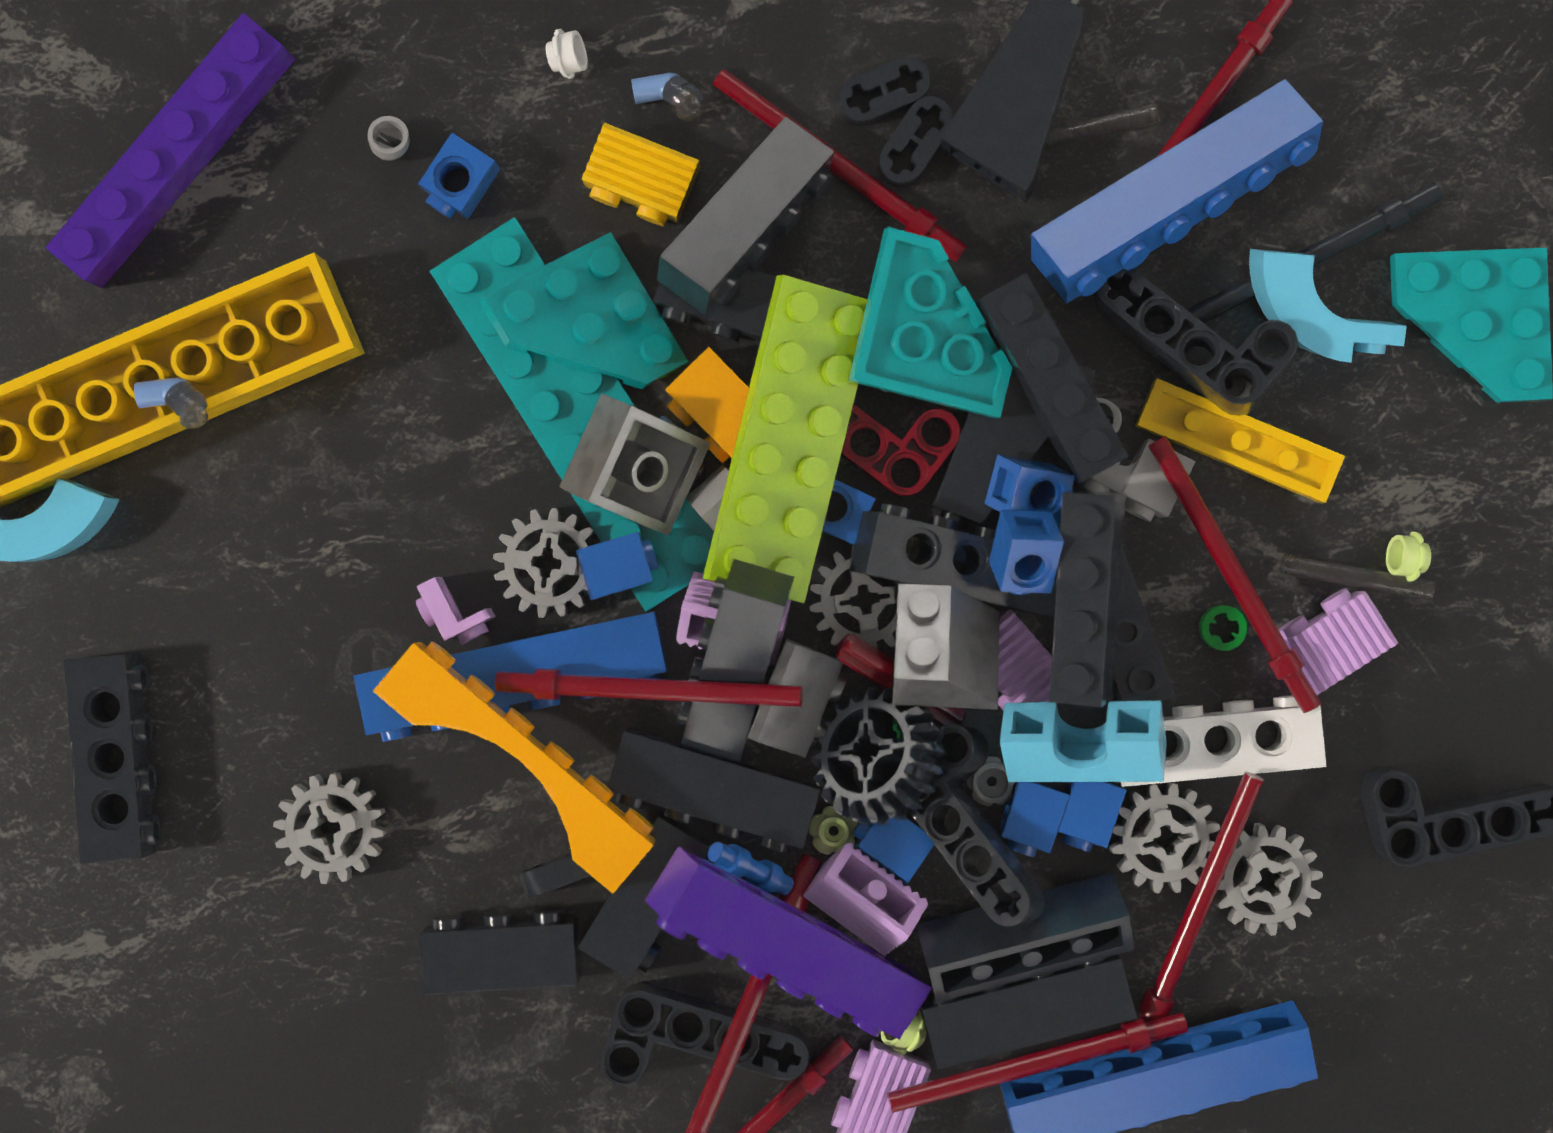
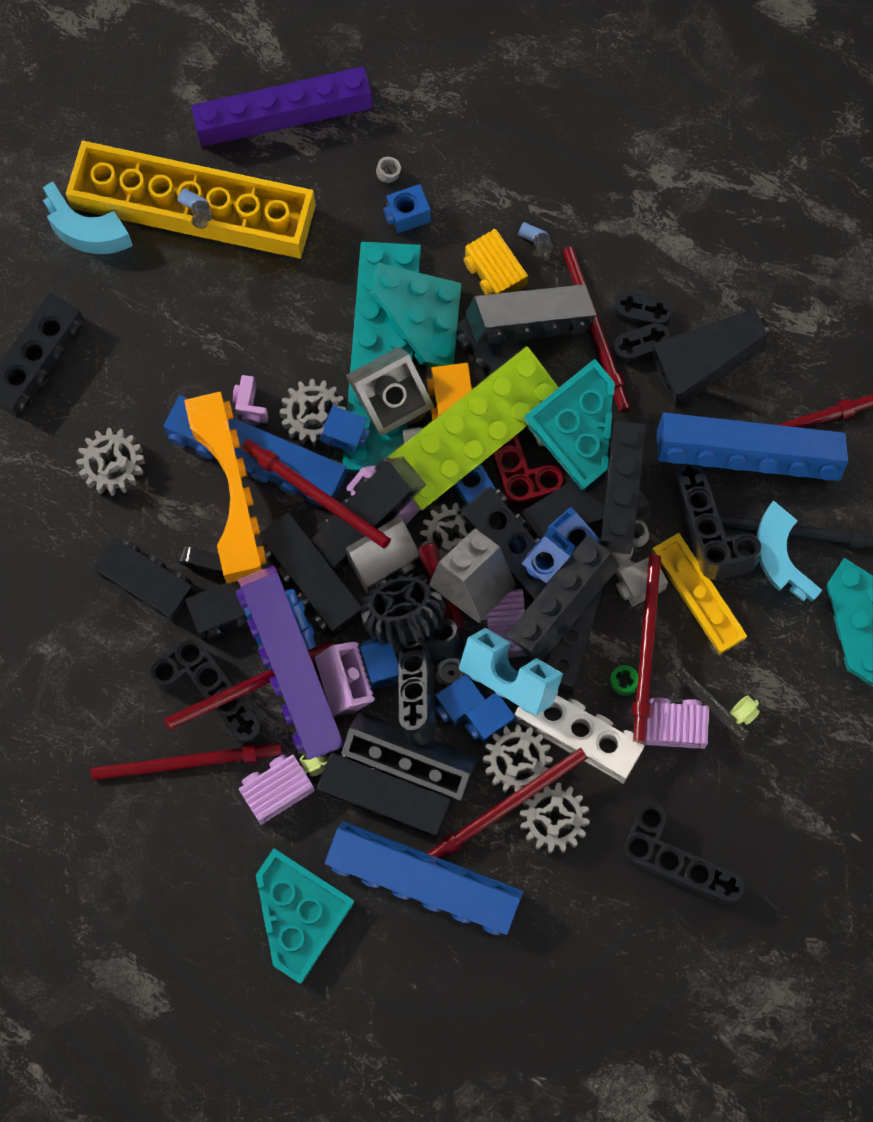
camera: 40 degrees right, 15 degrees down
(566, 53) = (502, 189): white plate -> none
(820, 827) = (350, 631): yellowish green plate -> none
(1133, 1036) = (428, 845): dark red bar -> none

